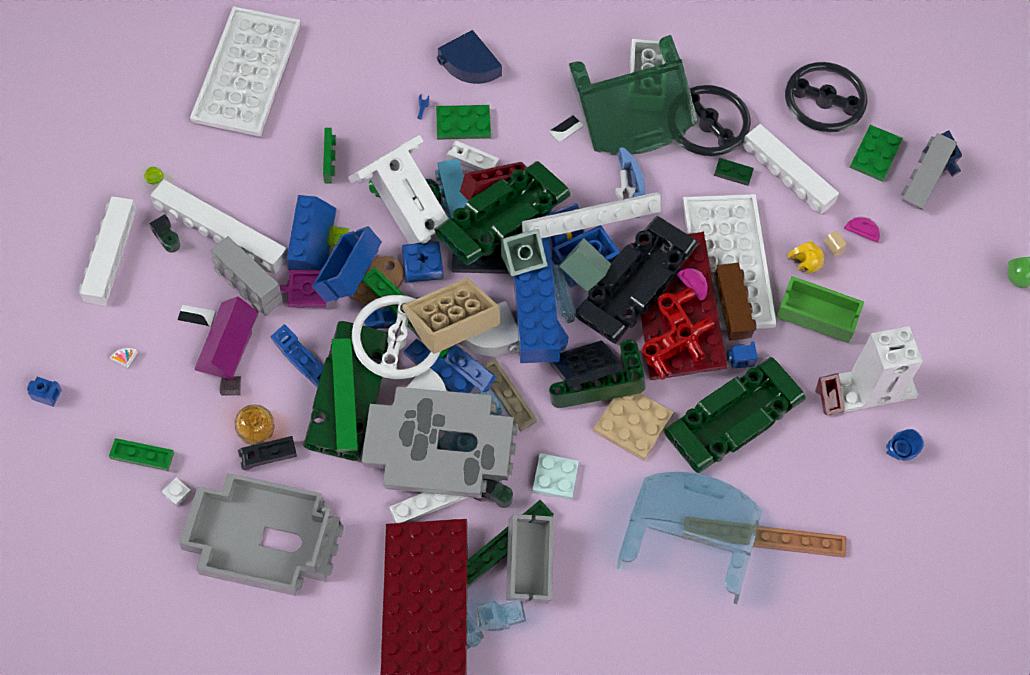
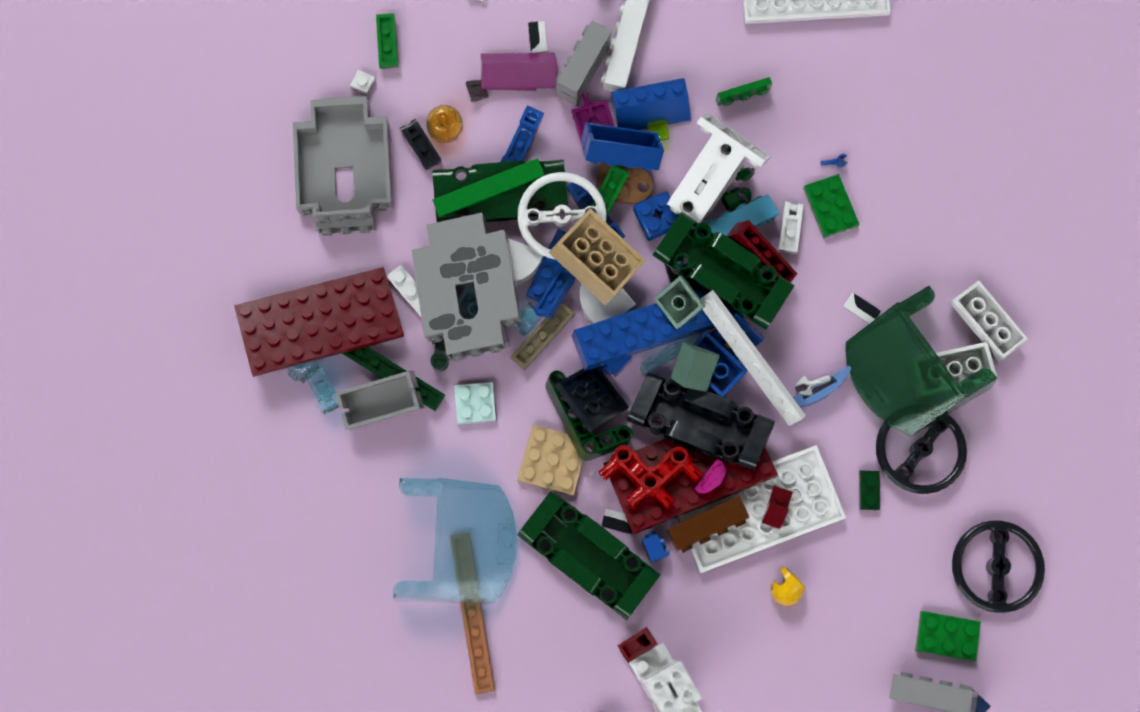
camera: 75 degrees right, 15 degrees up
(469, 59) = (906, 188): dark blue brick -> none
(610, 36) = (988, 321): none -> white brick
(708, 382) = (615, 520): none -> black sticker
(735, 244) = (777, 507): none -> dark red slope
(790, 169) = (890, 547): white brick -> none
(820, 309) = (730, 613): bright green piece -> none
(835, 243) = (816, 614): tan brick -> none
(864, 227) = (847, 640): dark pink plate -> none

